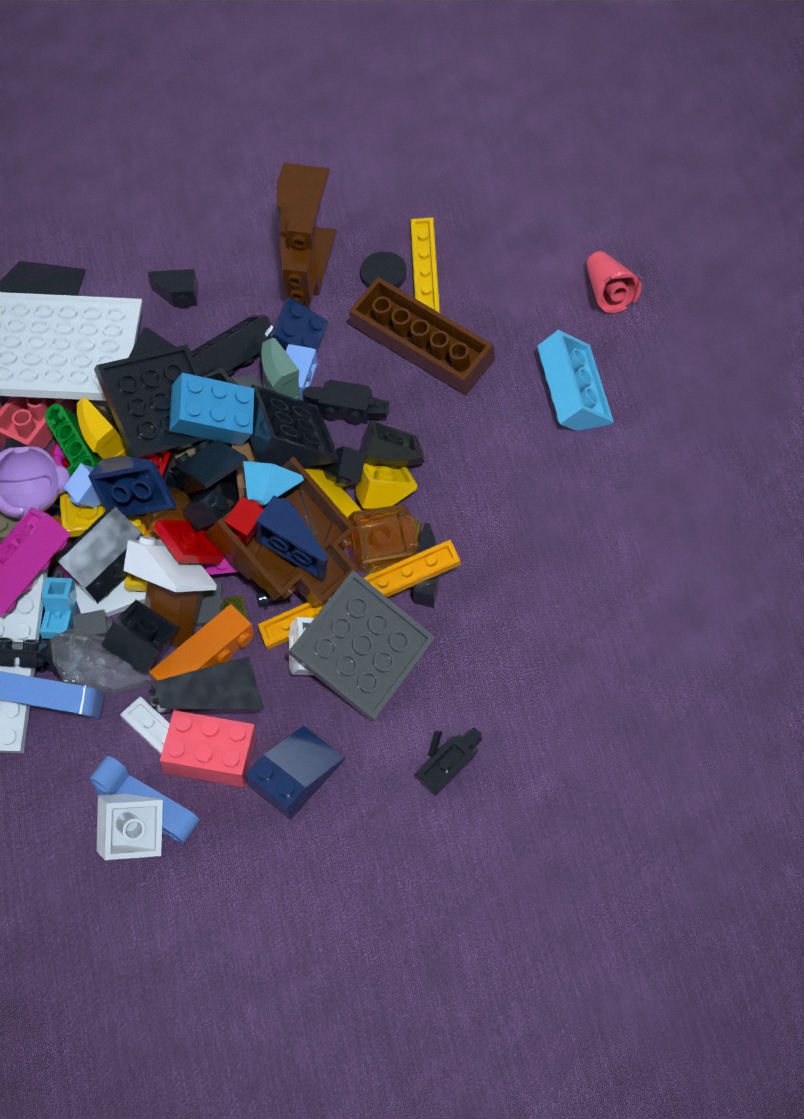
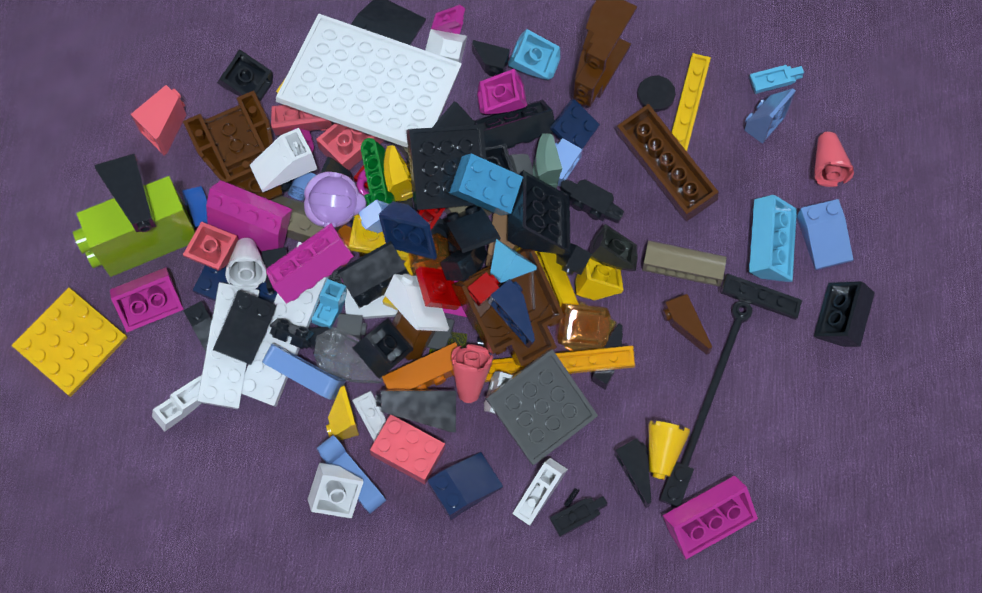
camera: 15 degrees right, 10 degrees up
(112, 734) = (341, 417): none -> yellow slope
(114, 262) = (449, 20): none -> dark pink slope
(118, 286) = (446, 44): none -> white slope
(200, 319) = (501, 93): none -> dark pink slope
(227, 269) = (535, 56): none -> medium azure slope
(260, 630) = (470, 370): none -> coral cone
(392, 747) = (540, 491): none -> white slope
(480, 439) = (684, 263): none -> dark tan brick
(499, 678) = (634, 462): none -> black slope
(506, 501) = (686, 321): none -> reddish brown slope
(514, 217) = (775, 78): none -> medium azure hinge
(522, 253) = (769, 115): none -> medium blue slope
(529, 644) = (665, 447): none -> yellow cone
(559, 672) = (681, 473): none -> black bar
(583, 447) = (761, 296): none -> black tile
(614, 710) = (710, 516): none -> dark pink slope
(632, 359) = (825, 234): none -> medium blue slope
(688, 436) = (844, 313): none -> black slope

